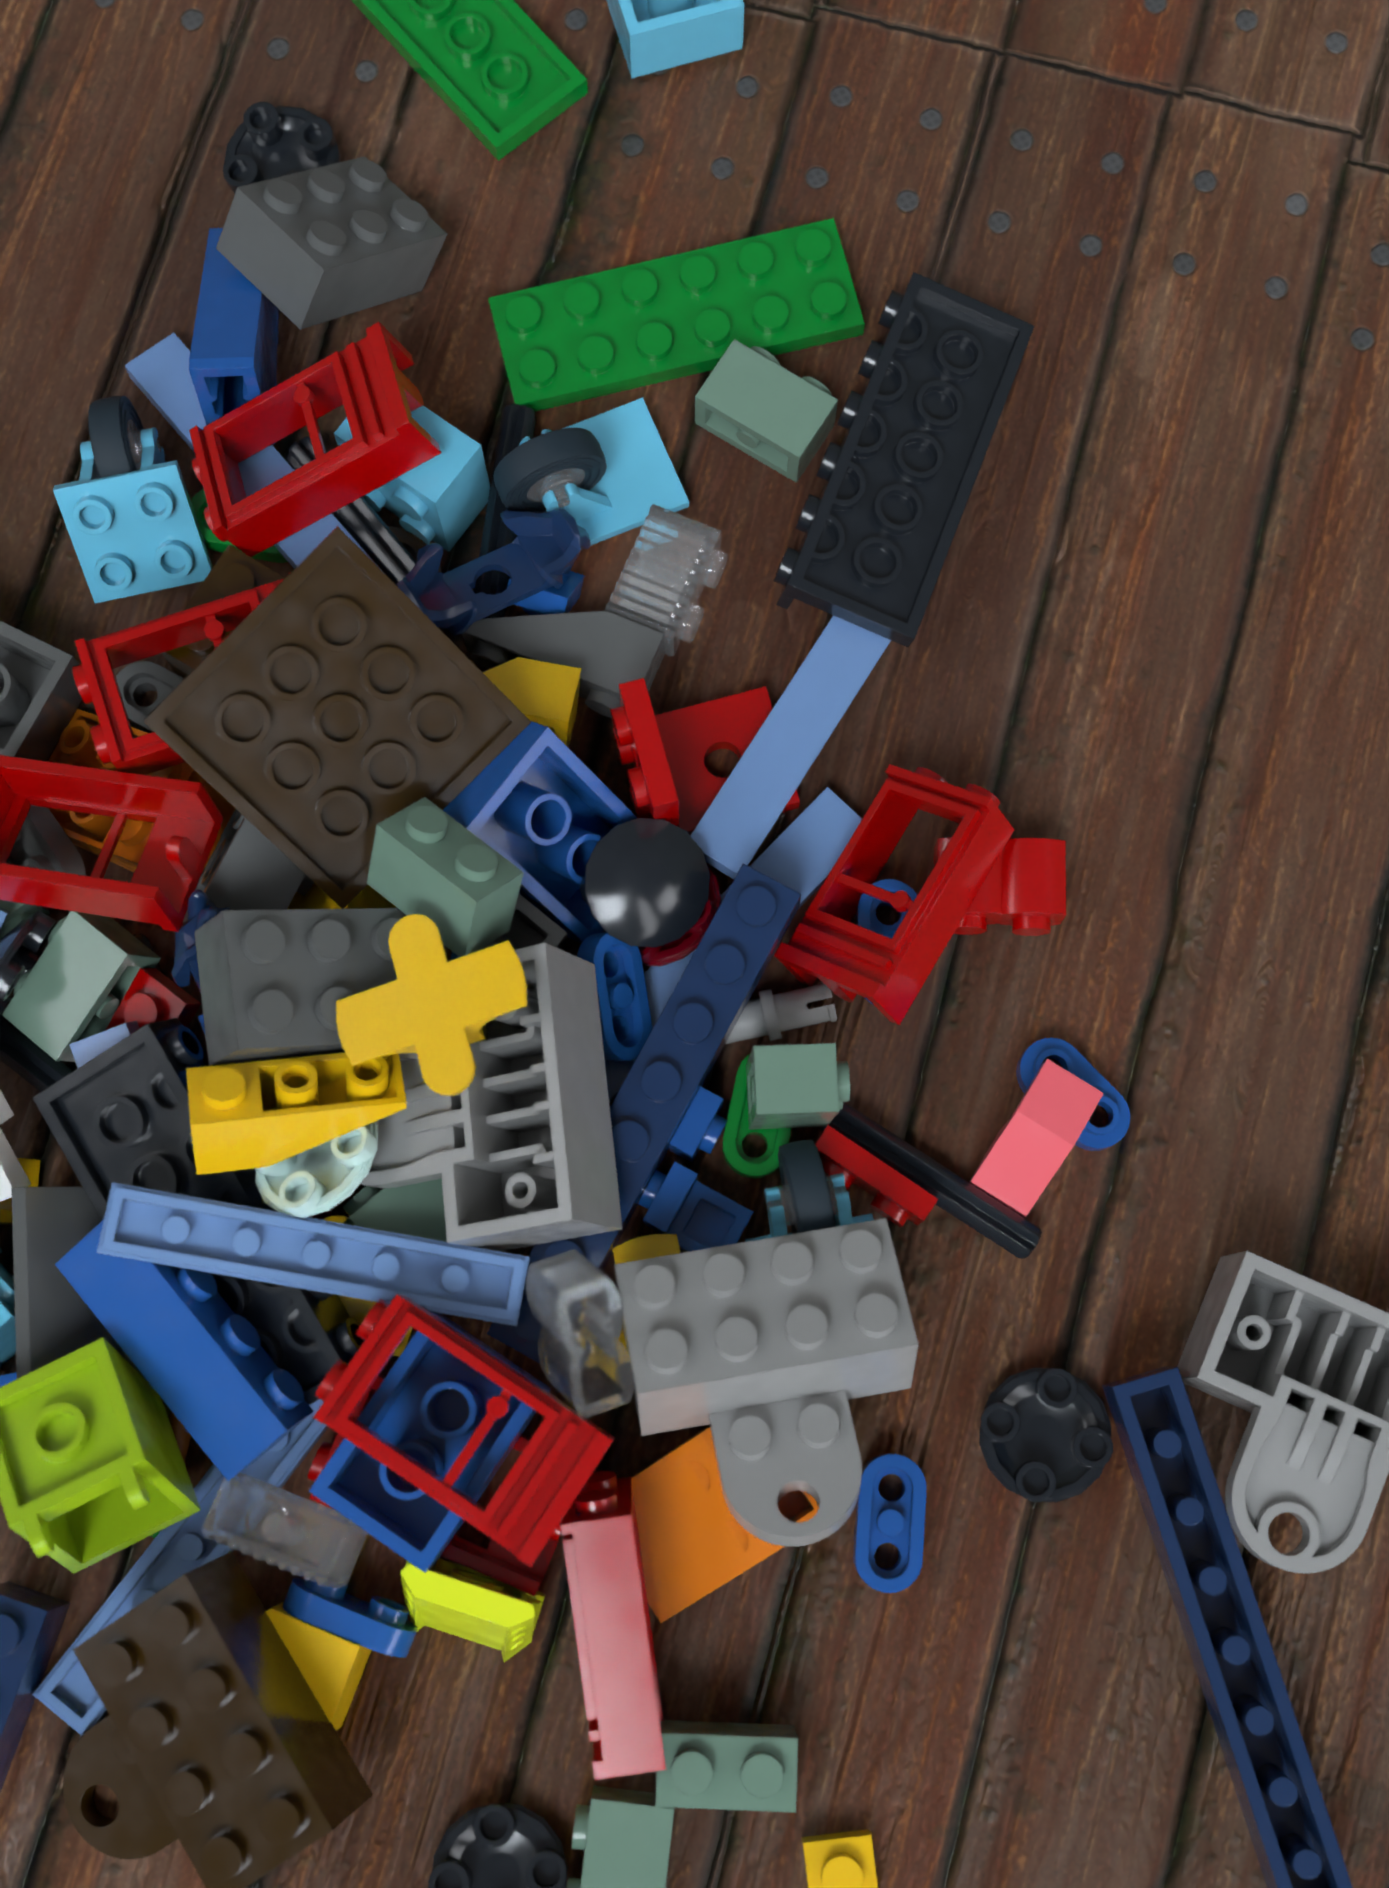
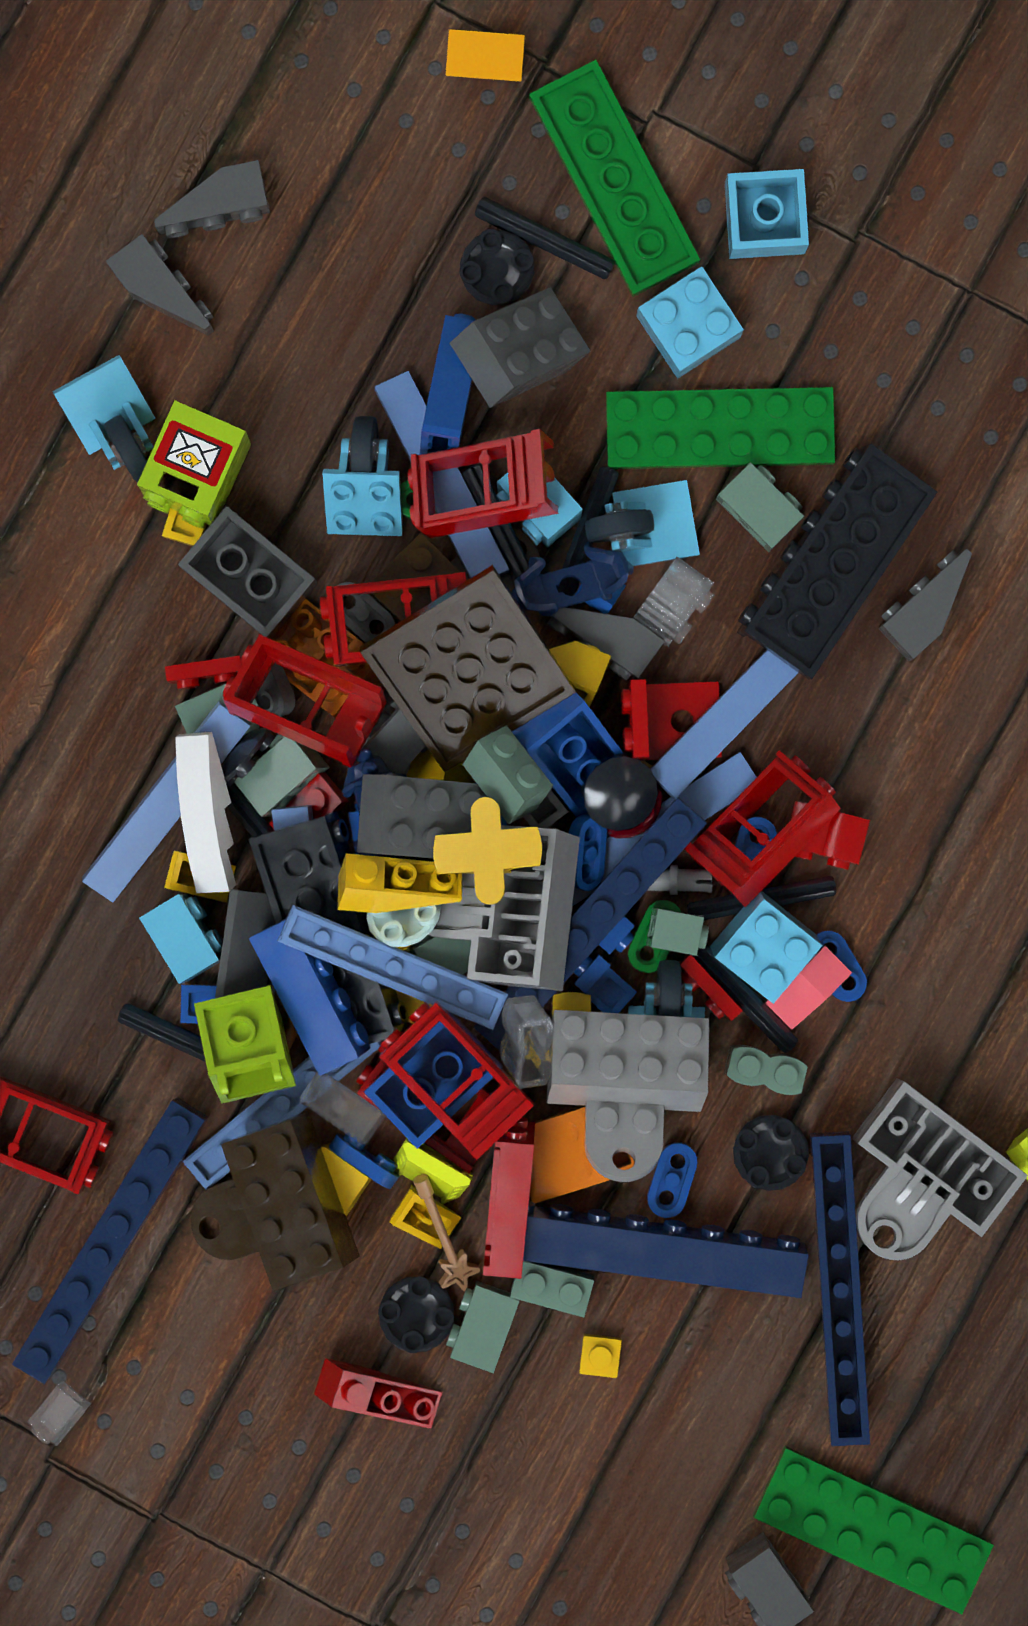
camera: 15 degrees right, 10 degrees up
(348, 105) = (544, 238): none -> black axle
(475, 1694) = (415, 1219): none -> yellow slope
(551, 1770) = (456, 1267): none -> medium nougat piece
(591, 168) = (689, 322): none -> medium azure brick
(907, 1652) = (665, 1250): none -> dark blue brick
(936, 1007) = (781, 894): none -> black axle
(950, 1082) = (766, 946): none -> medium azure brick
(1020, 1293) = (776, 1071): none -> sand green brick
(1065, 510) = (925, 614): none -> dark grey slope

